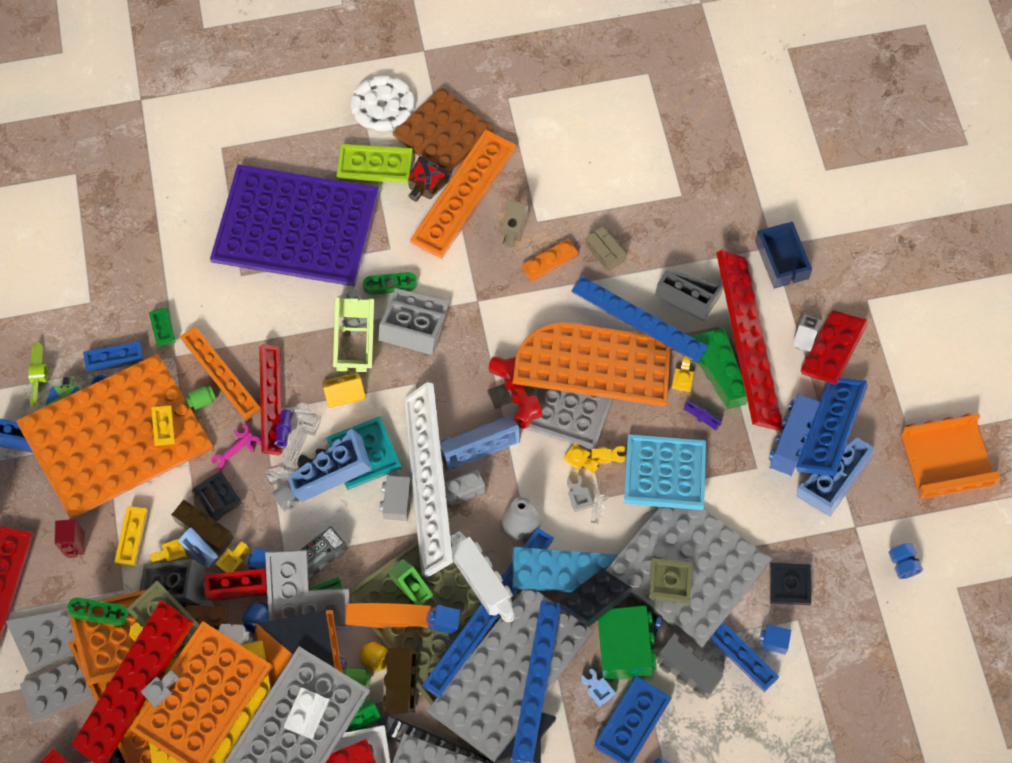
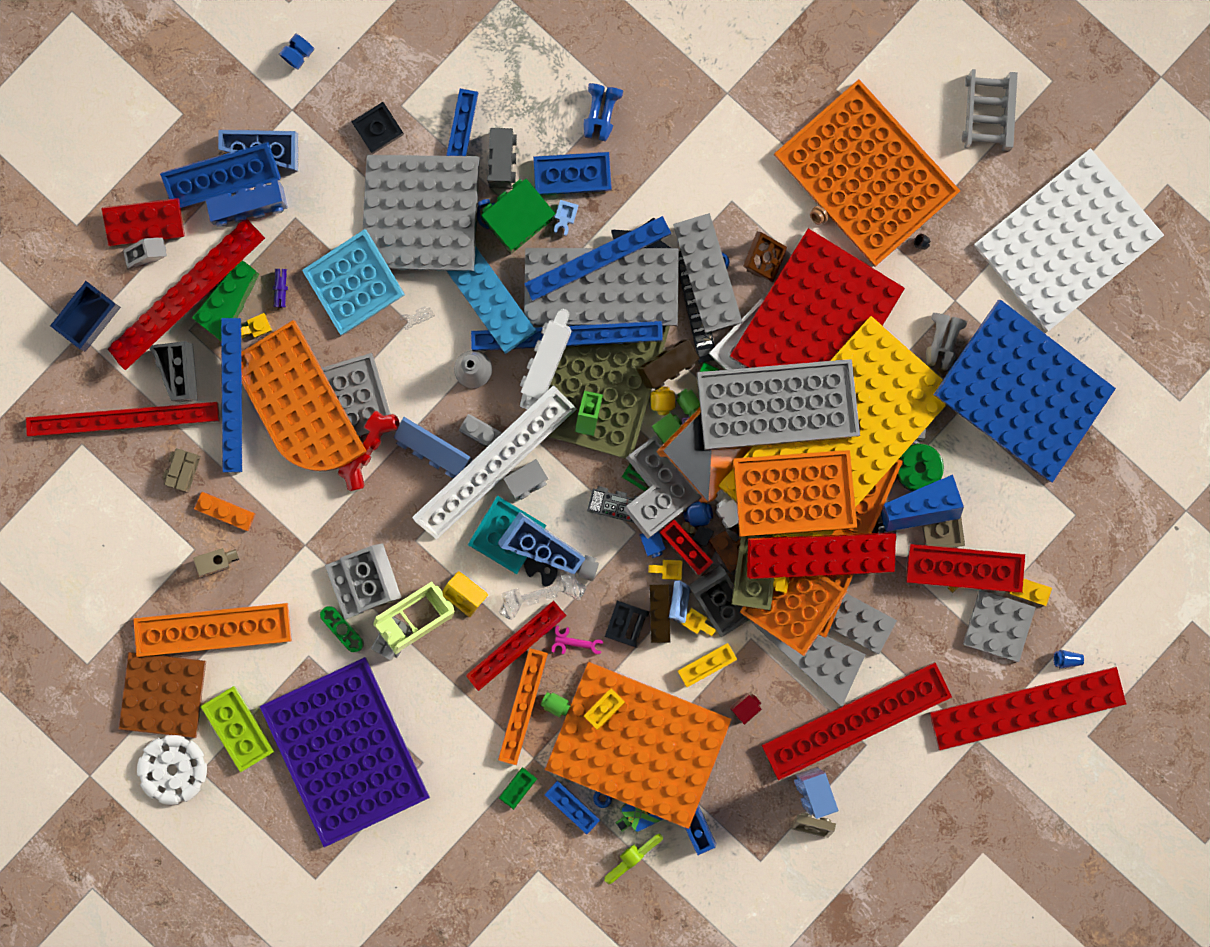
camera: 130 degrees left, 20 degrees up
(81, 614) = (791, 644): green beam -> none
(158, 690) = (815, 526): light grey plate -> none
(237, 607) = (701, 535): none -> black piece
(284, 428) = (533, 613): dark purple pin -> none
(306, 713) = (749, 404): white plate -> none
(349, 642) = (667, 427): none -> bright green slope
(386, 614) = (626, 410): orange slope -> none
(426, 179) = (222, 671): torso -> none
(443, 619) = (599, 365): blue brick -> none
(499, 396) = (379, 463): clear smoke plate -> none
(579, 458) = (387, 362): yellow plate -> none
(579, 497) = (421, 337): light grey plate -> none
(595, 597) = (501, 259): black plate -> none
(605, 455) = (372, 344): yellow plate -> none
(670, 580) = (446, 213): olive plate -> none
(678, 234) = (122, 419): none -> red plate
(775, 639) = (431, 110): blue brick -> none
(948, 456) = (180, 73): orange panel -> none

